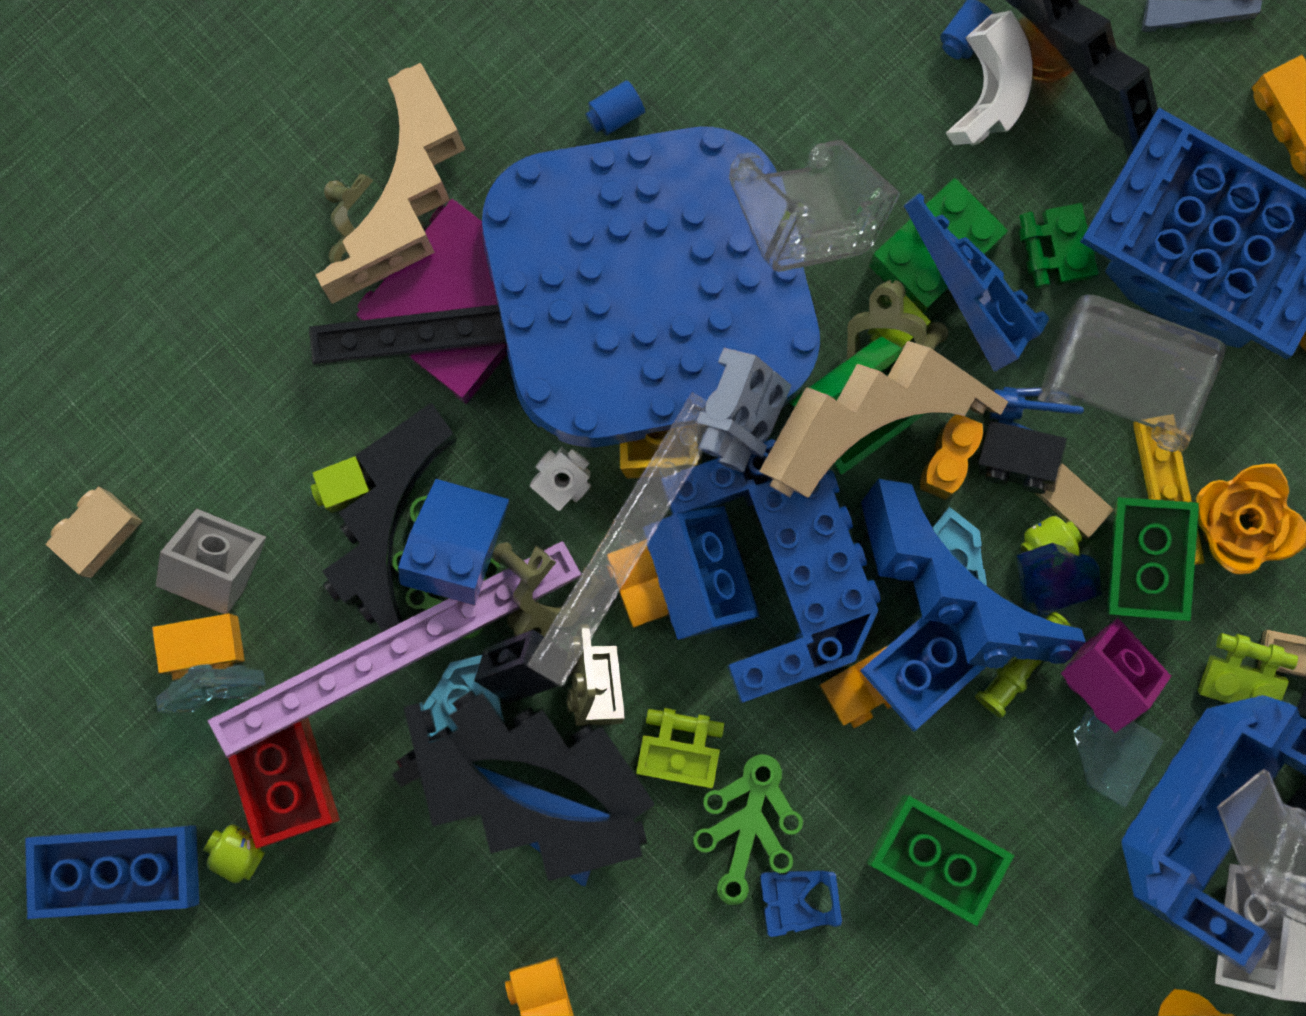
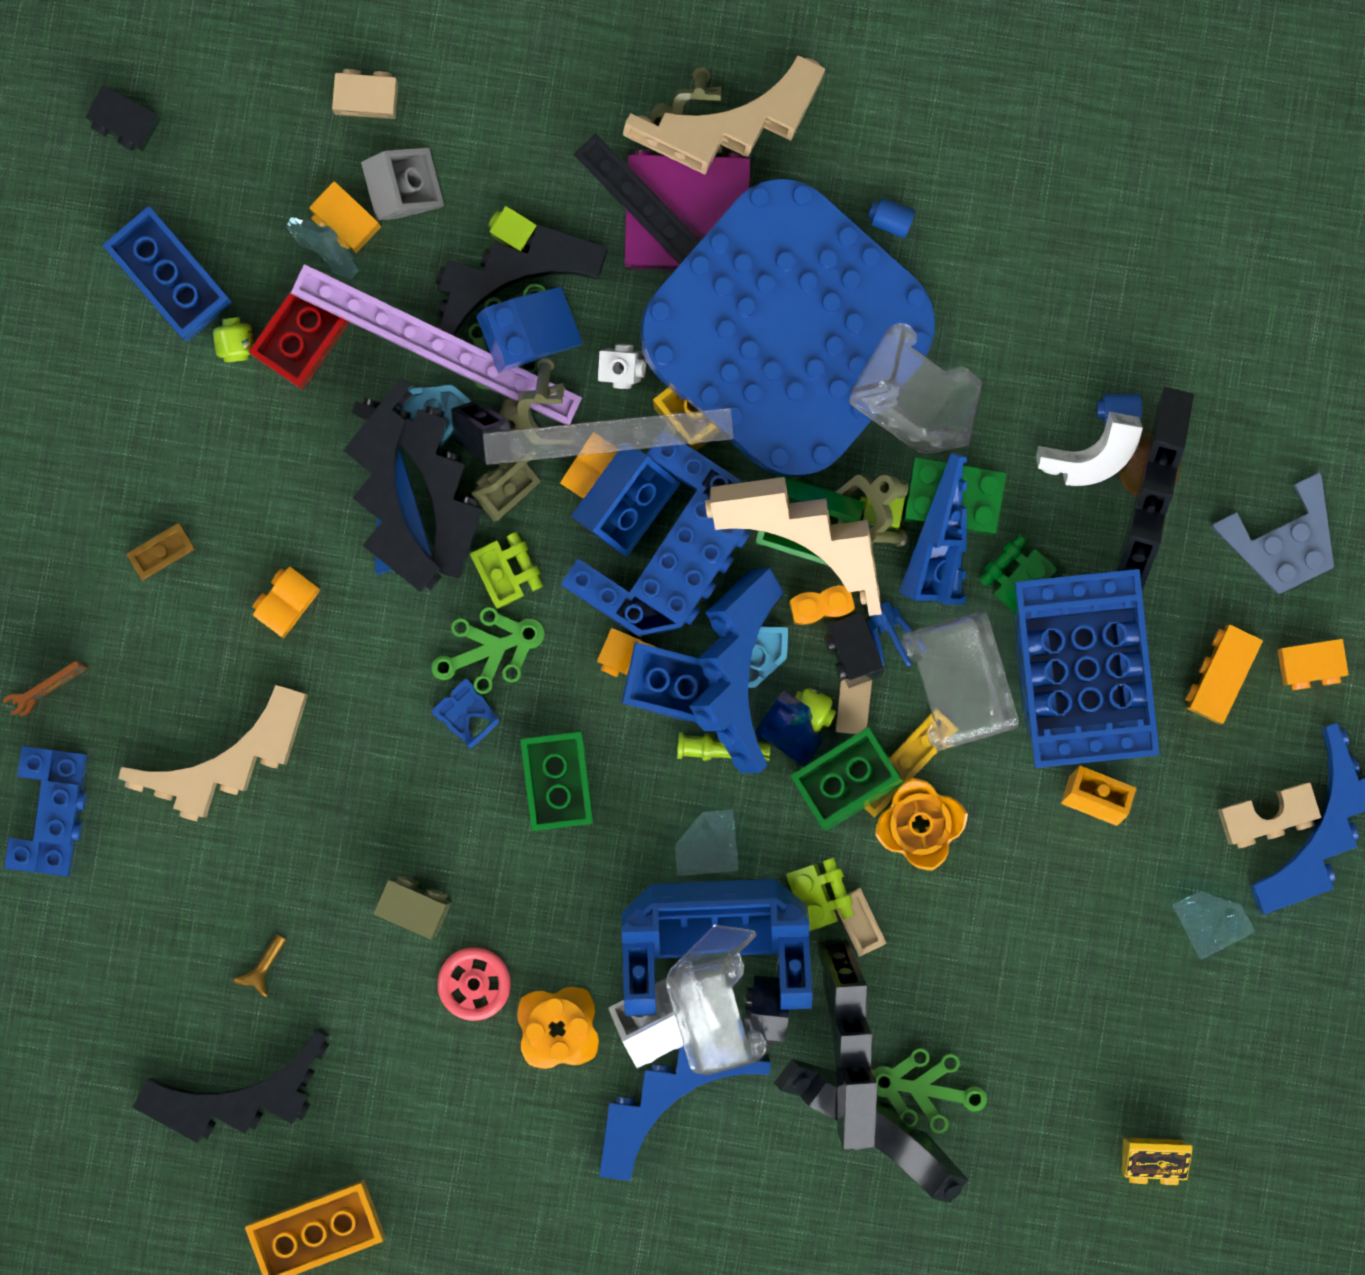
camera: 55 degrees right, 5 degrees up
(742, 409) = (740, 447): sand blue hips -> none
(1116, 675) = (755, 808): magenta brick -> none

